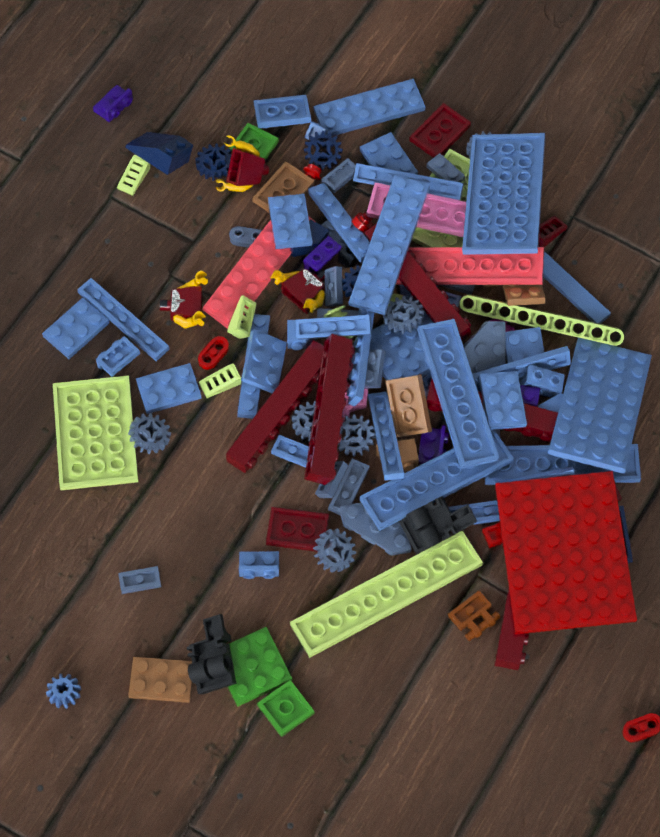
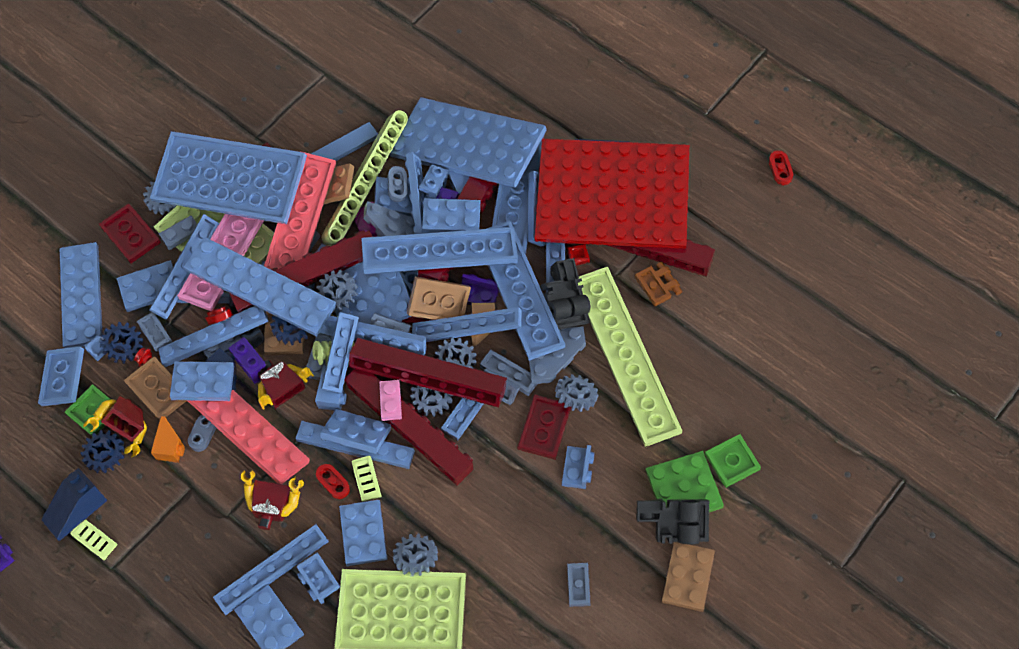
camera: 75 degrees left, 0 degrees up
(232, 210) = (167, 444): none -> orange slope
(239, 329) = (303, 446): yellowish green slope -> none
(296, 382) = (390, 400): none -> bright pink plate
(333, 286) = (285, 352): sand blue plate -> none
(531, 345) = (397, 185): none -> sand blue plate

